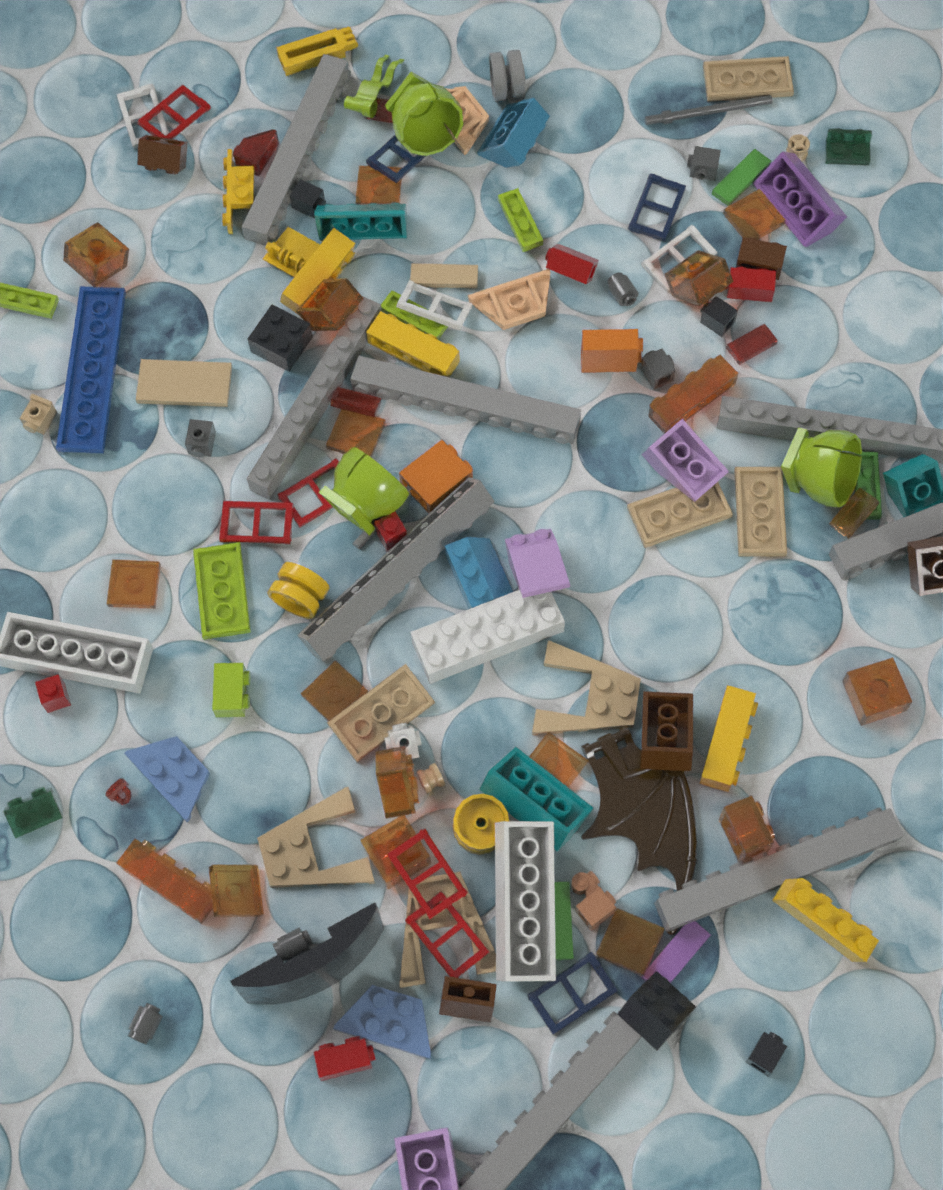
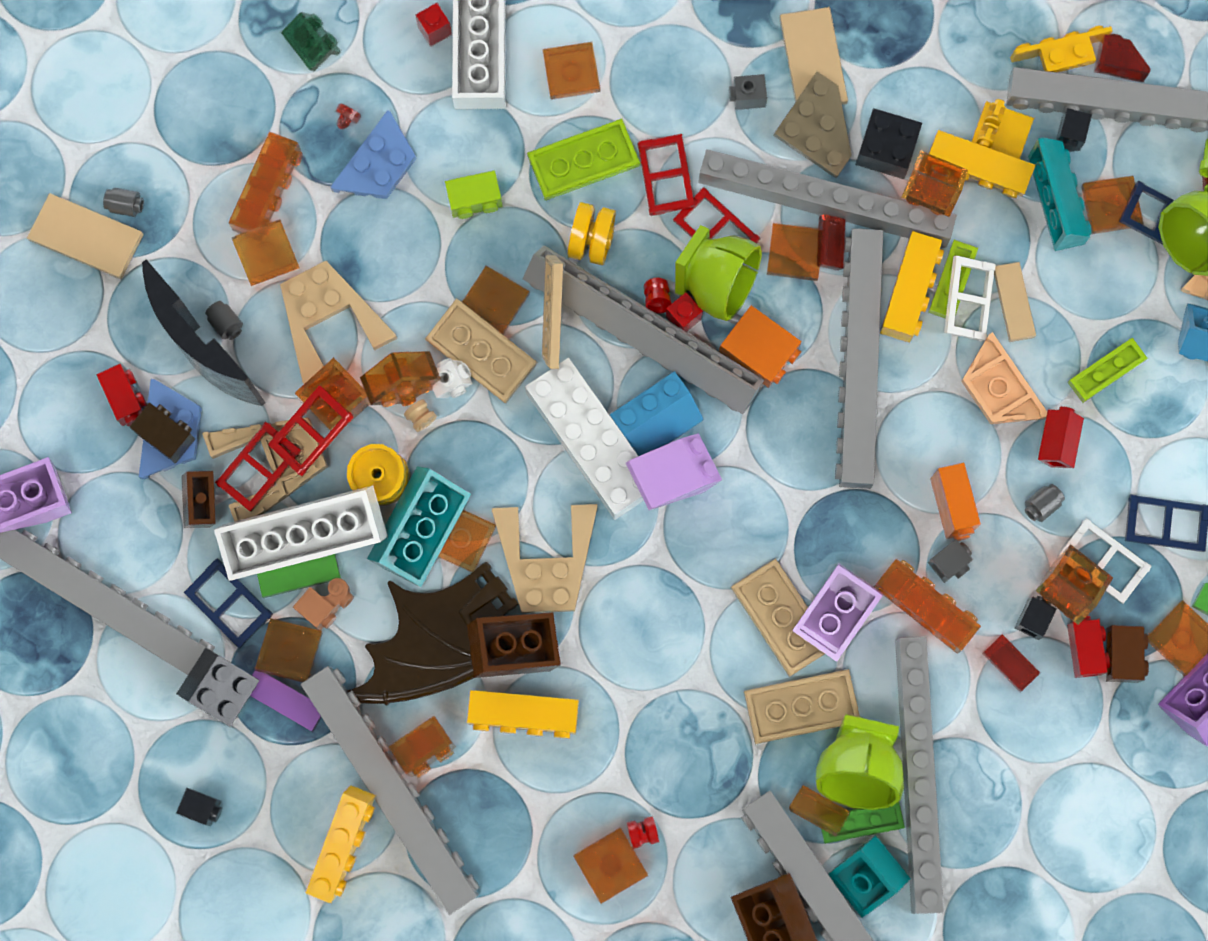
camera: 75 degrees right, 10 degrees up
(168, 1071) = (85, 236): none -> tan tile
(248, 390) = (818, 126): none -> dark tan plate
(366, 632) = (552, 311): none -> tan tile
(368, 550) = (657, 295): none -> red wheel
(394, 1019) = (162, 432): none -> dark brown brick
(850, 657) = (636, 833): none -> red wheel

